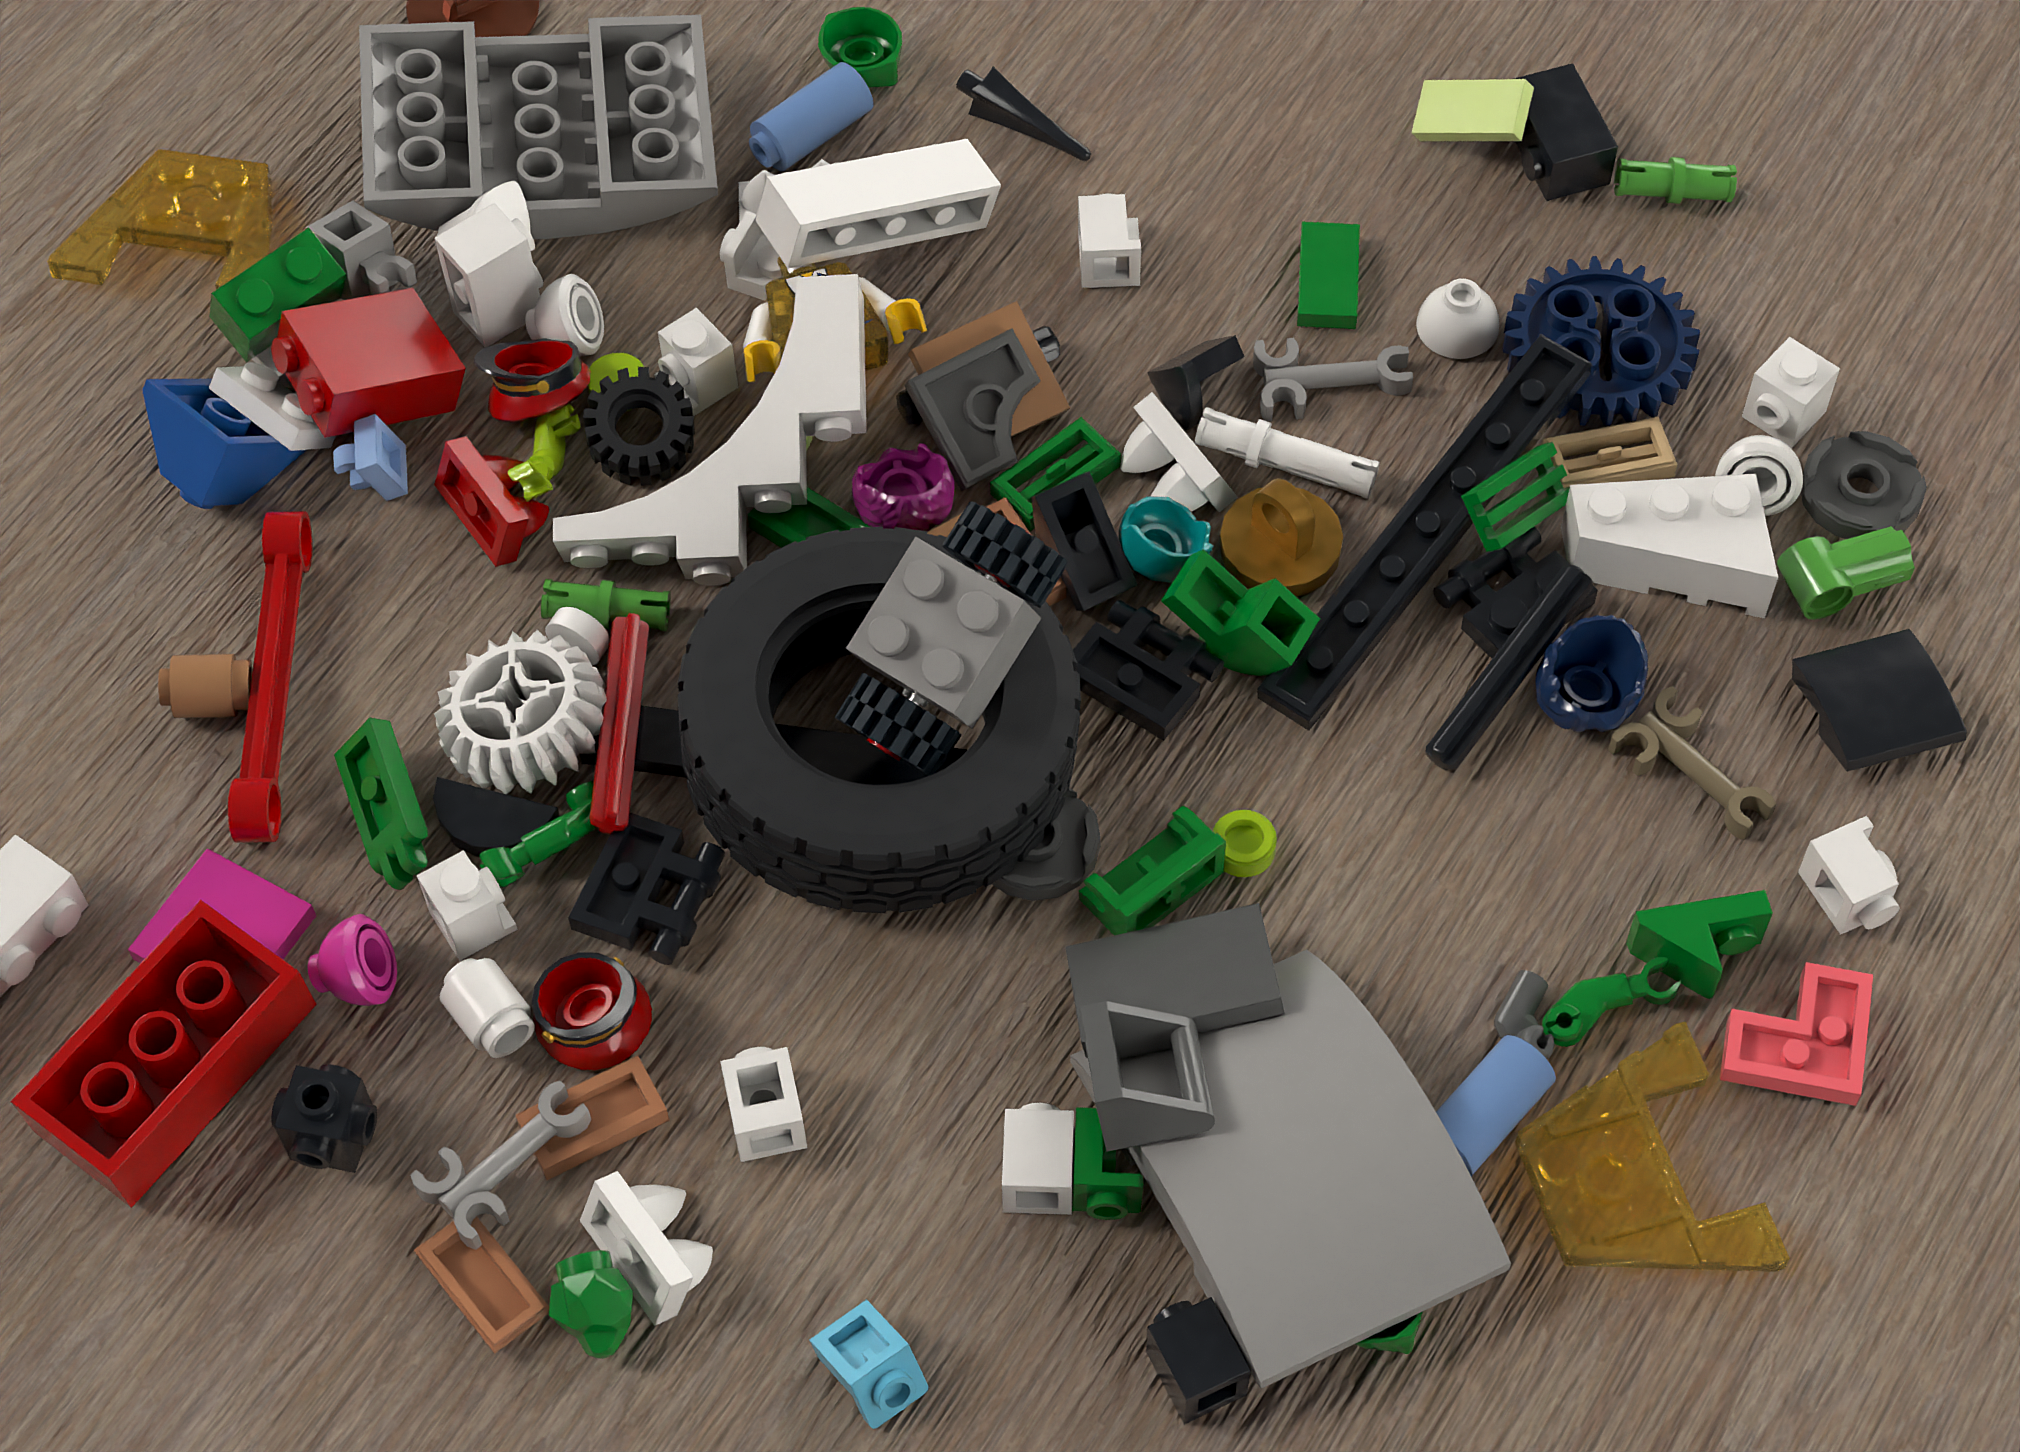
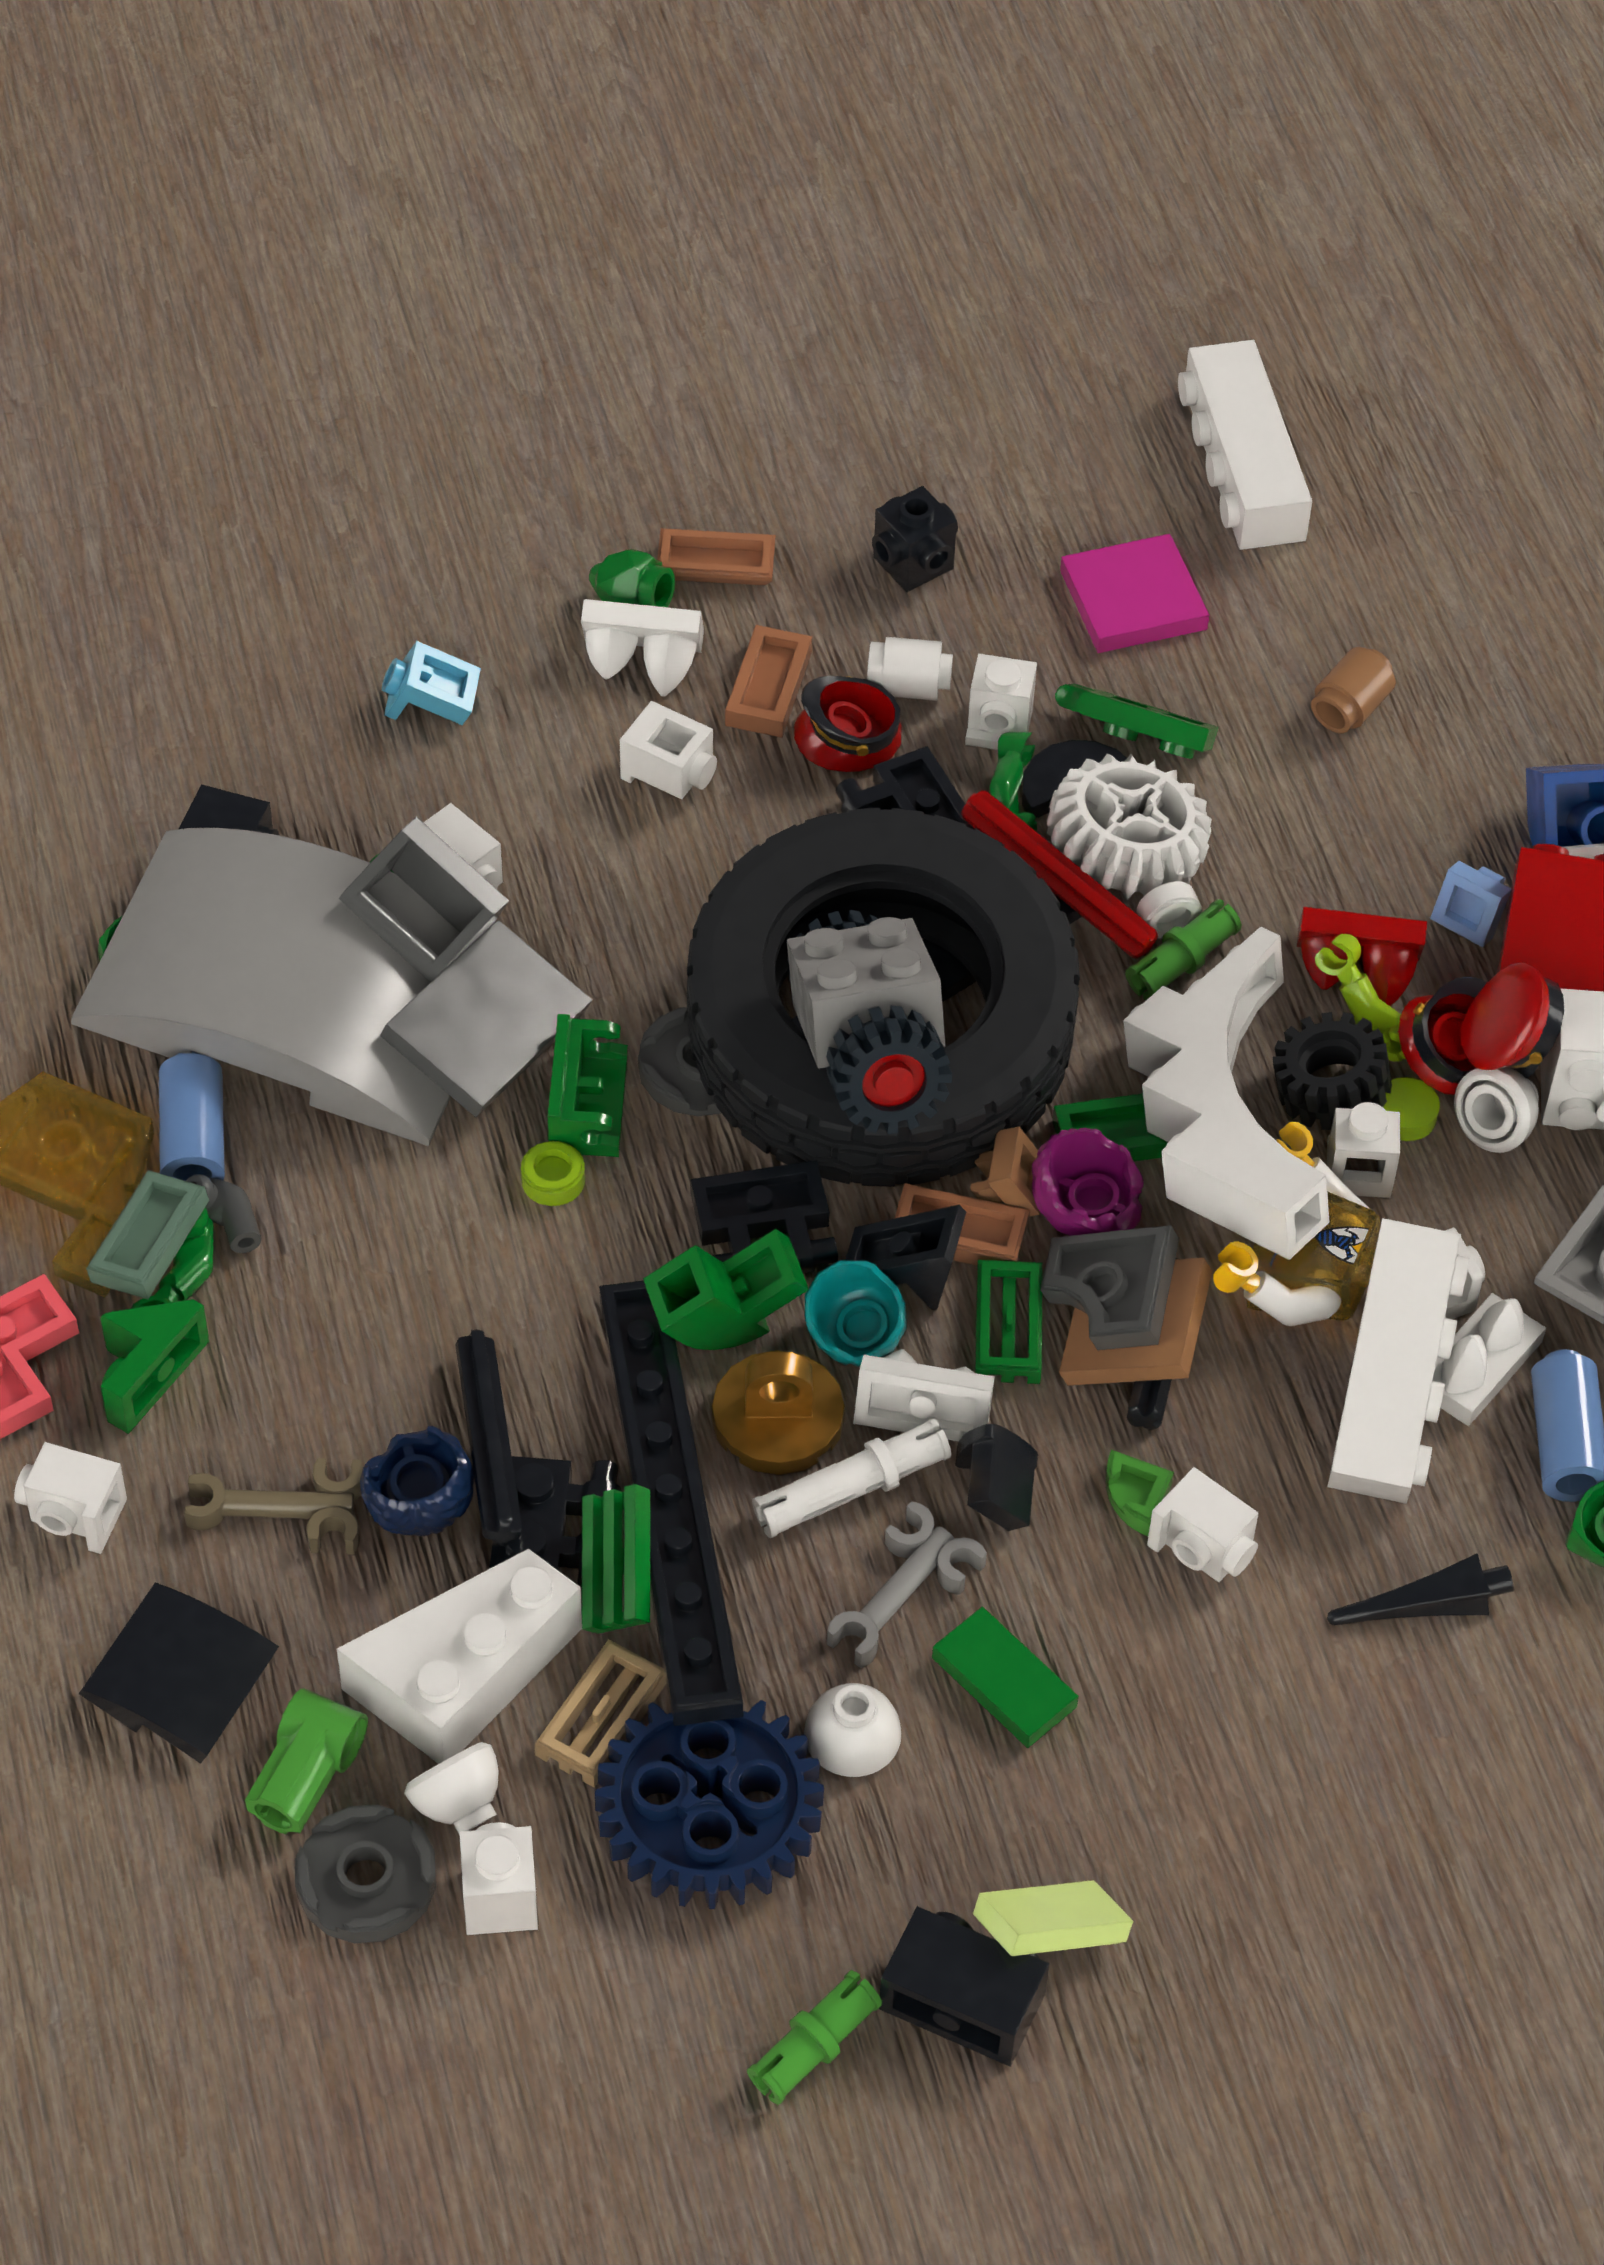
camera: 130 degrees right, 5 degrees down
(165, 1052) = (1050, 484): red brick -> none
(255, 795) = (1436, 802): red piece -> none
(355, 963) = (1017, 624): dark pink brick -> none
(468, 1194) = (780, 570): light grey bar -> none
(515, 302) = (1513, 1020): none -> red piece
(1109, 309) = (1135, 1489): none -> bright green tile
(1621, 1015) = (147, 1234): none -> sand green tile

